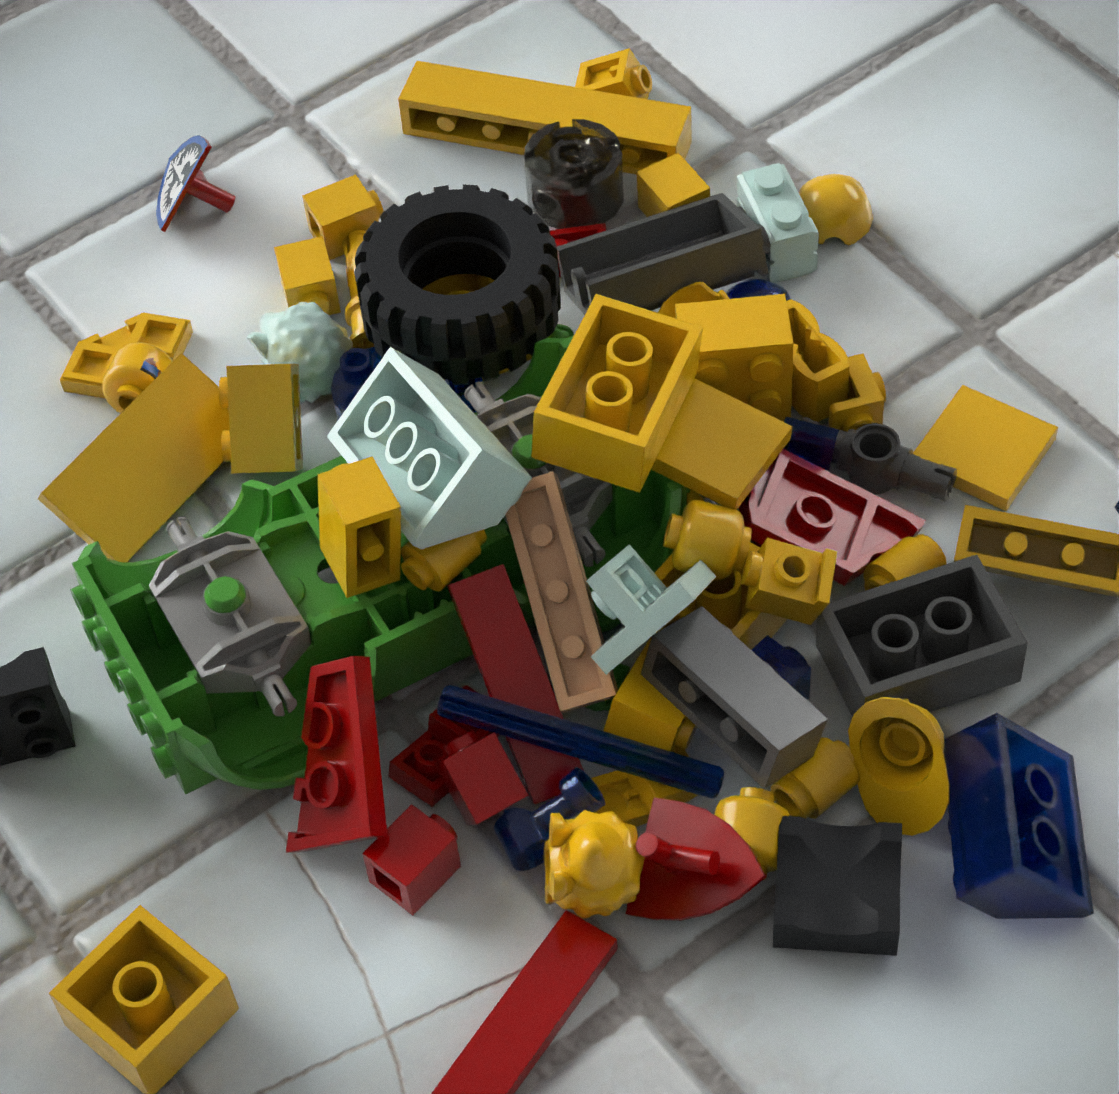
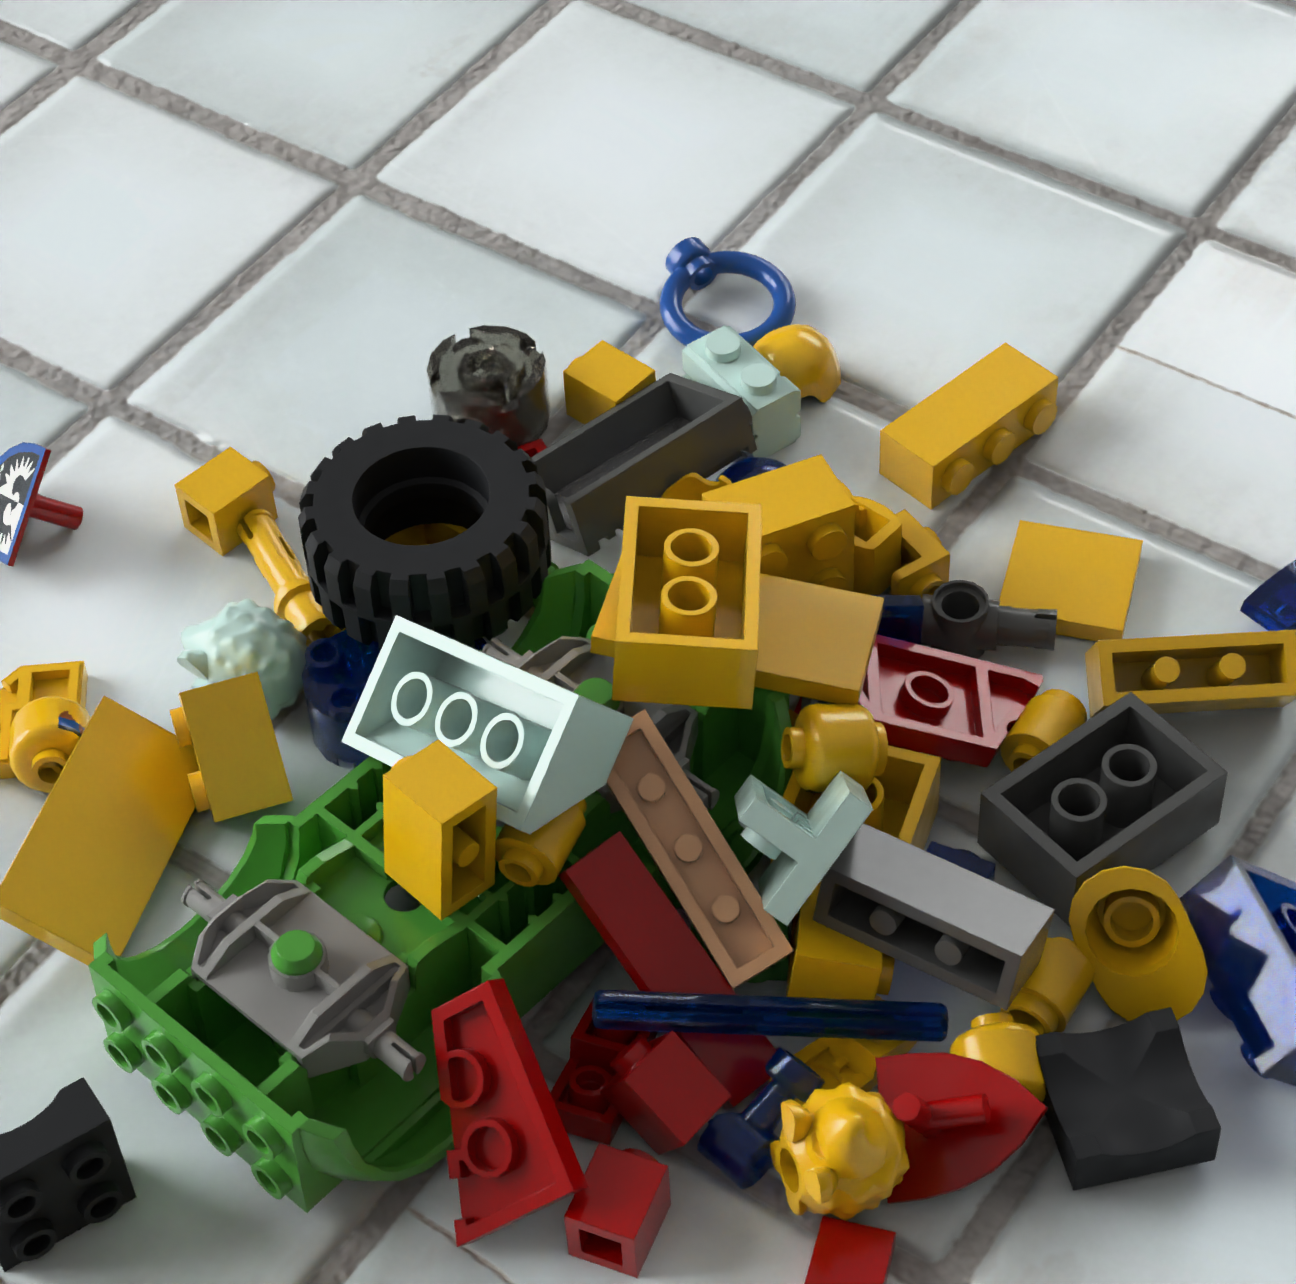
camera: 20 degrees left, 5 degrees down
(307, 274) = (210, 574): yellow brick -> none
(508, 110) = (392, 338): yellow brick -> none
(616, 74) = (484, 278): yellow bracket -> none
(786, 107) = (696, 267): none -> blue piece
(789, 580) = (945, 770): yellow brick -> none
(953, 293) = (968, 425): none -> yellow brick

